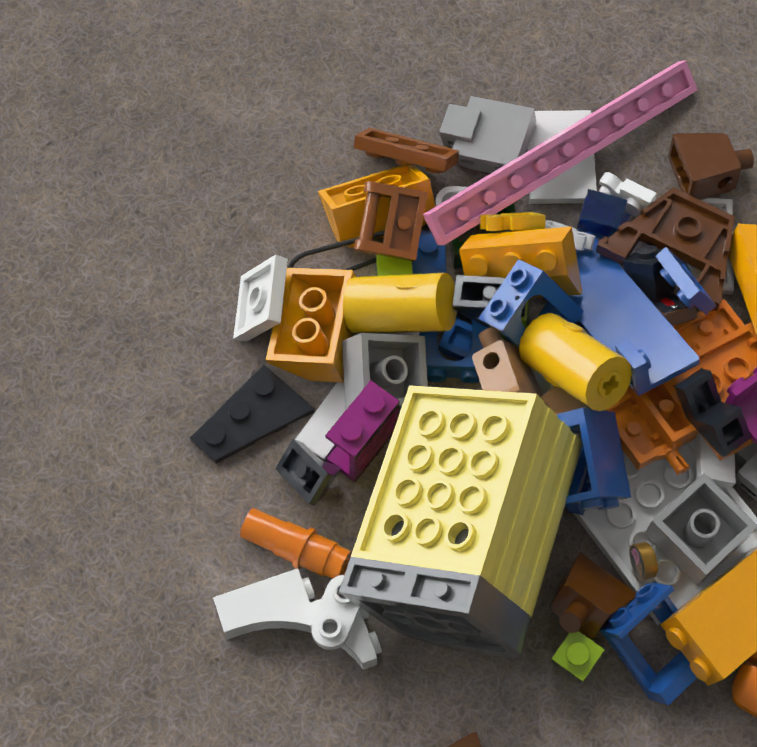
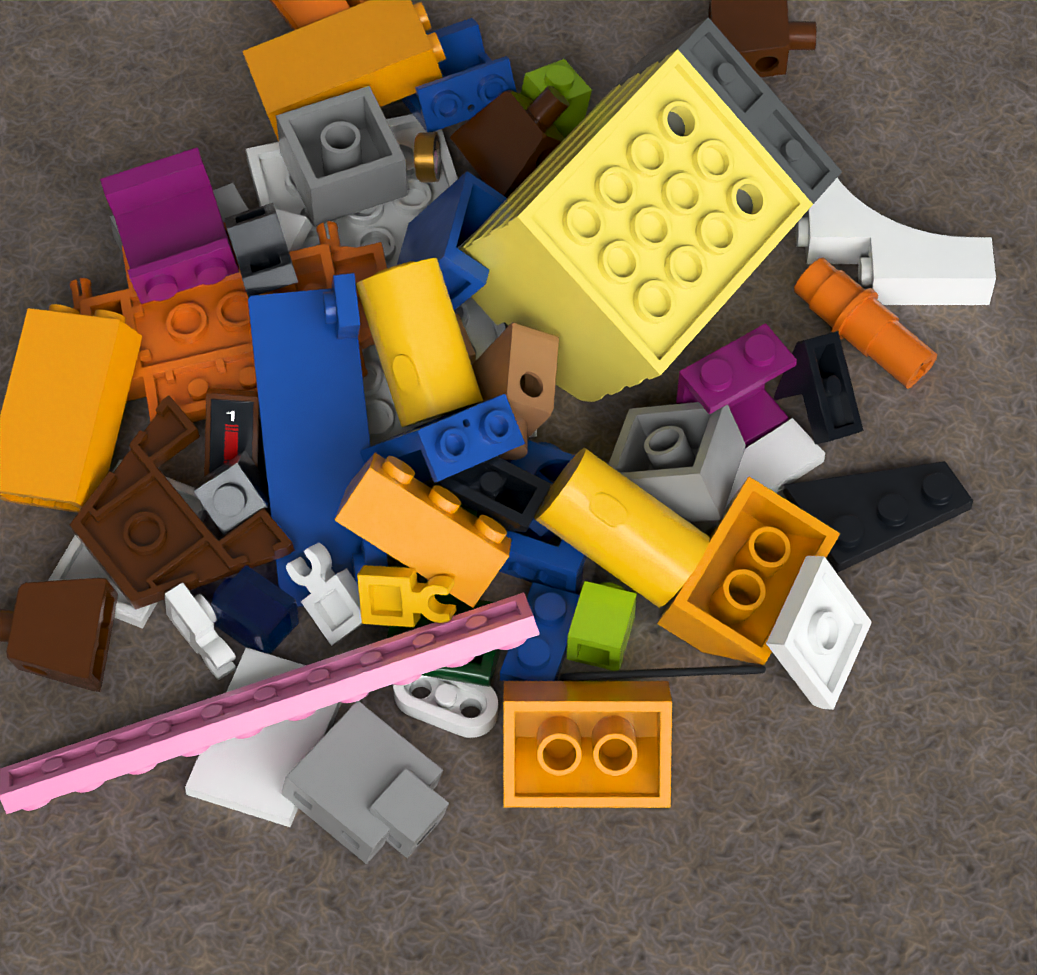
camera: 160 degrees left, 10 degrees down
(335, 610) = (846, 208): white plate -> none
(402, 221) = (576, 639): dark orange plate -> none
(406, 150) = (511, 798): dark orange plate -> none
(690, 291) = (204, 421): plate -> none

